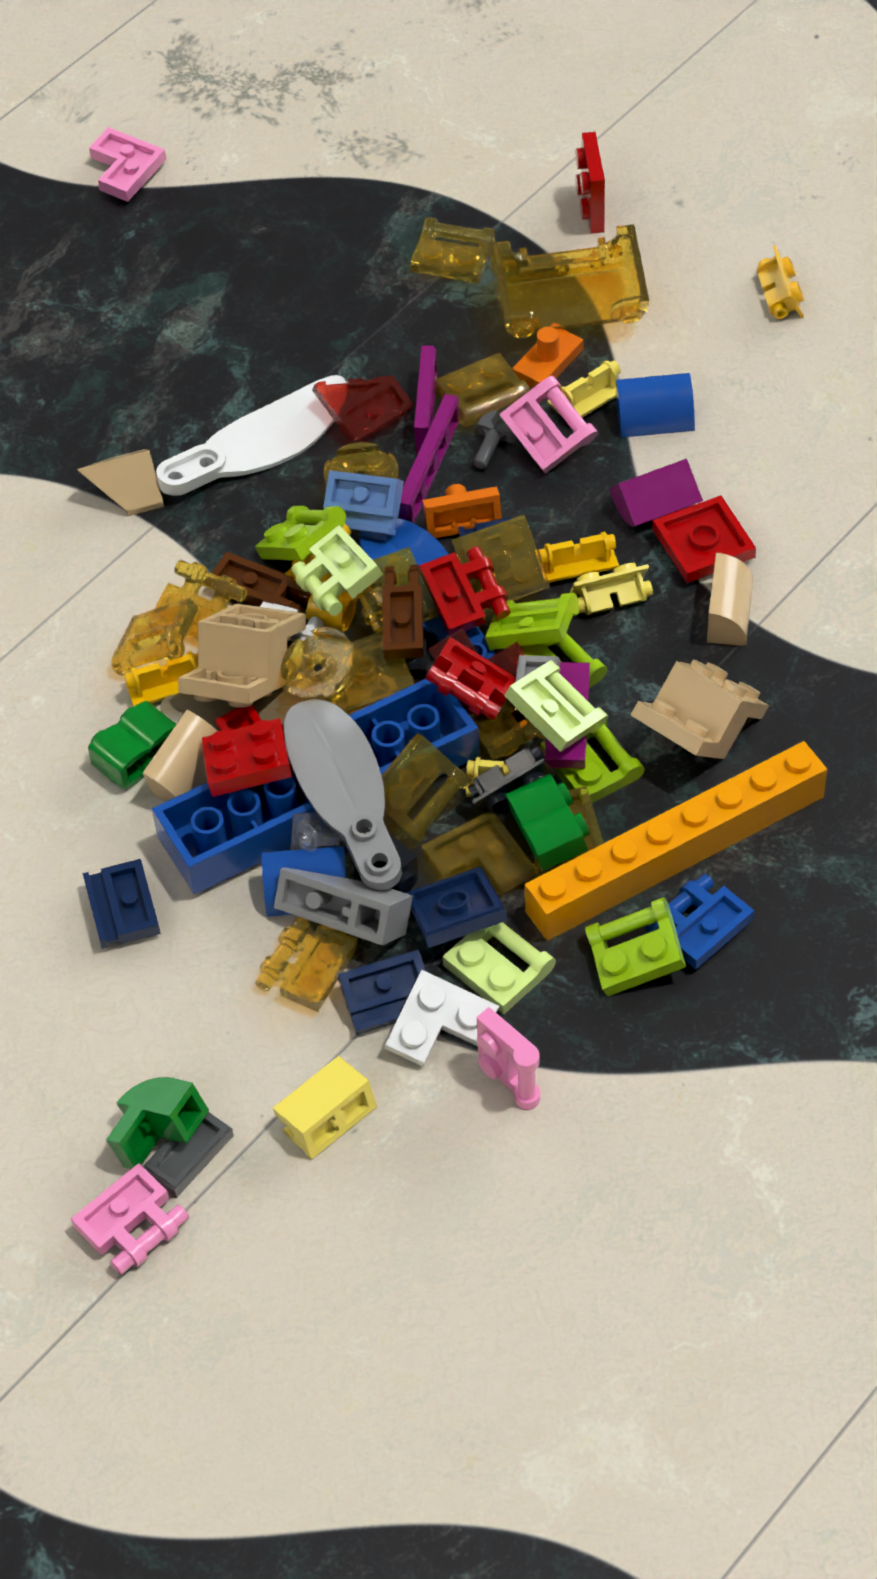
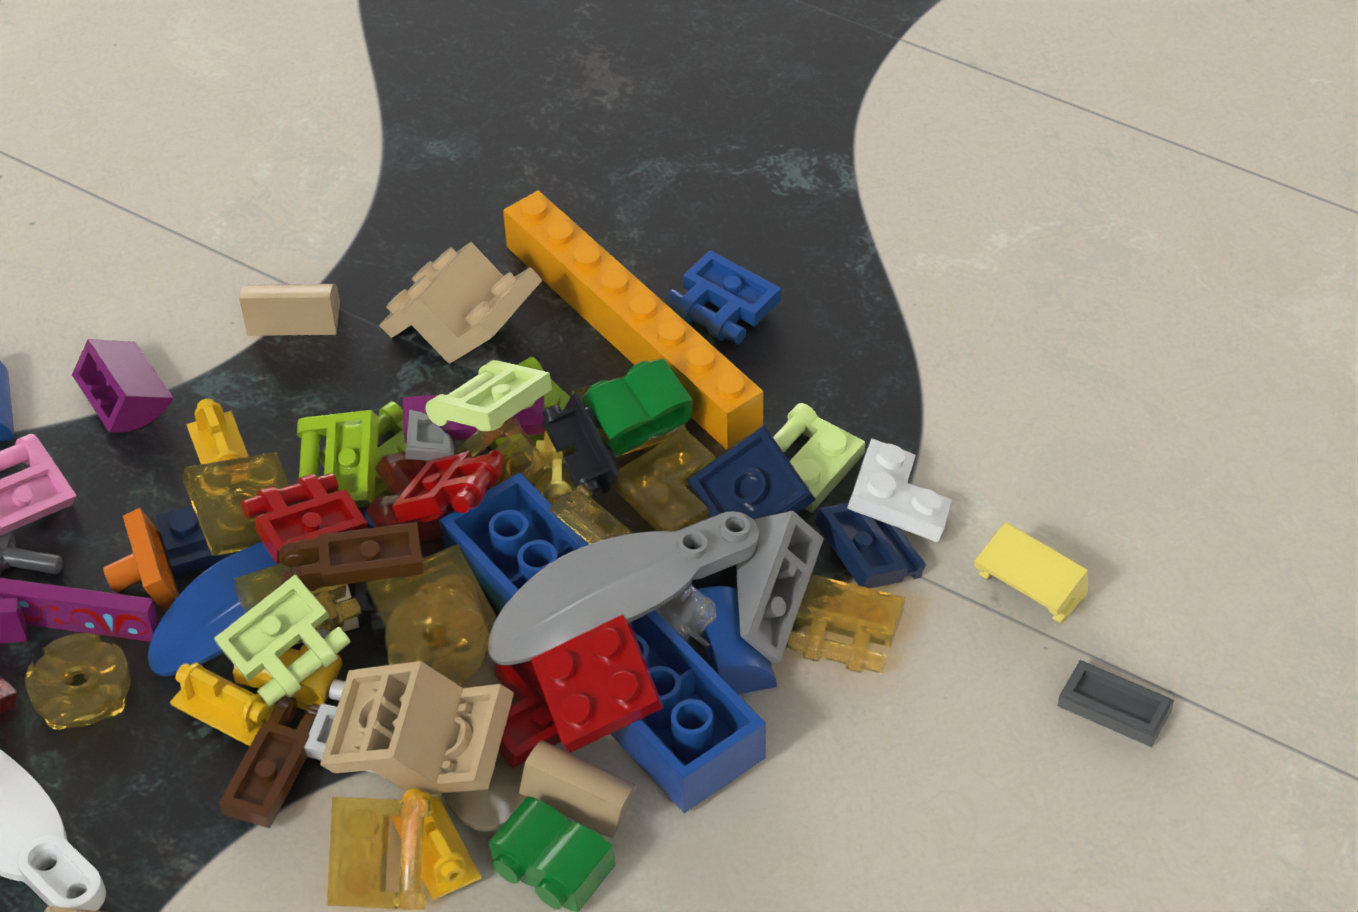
camera: 100 degrees left, 5 degrees down
(121, 903) = (798, 826): dark blue plate -> none
(123, 1208) = (1217, 746): bright pink plate -> none
(155, 1110) = (1087, 723): green brick -> none
(195, 576) = (309, 842): clear yellow plate -> none
(299, 532) = (206, 723): lime plate -> none
(368, 500) = (146, 650): medium blue plate -> none
(509, 1057) = (946, 407): bright pink plate -> none
(624, 582) = (268, 410): light yellow hinge -> none
(641, 957) = (784, 331): lime plate -> none
(700, 532) = (193, 337): red plate -> none

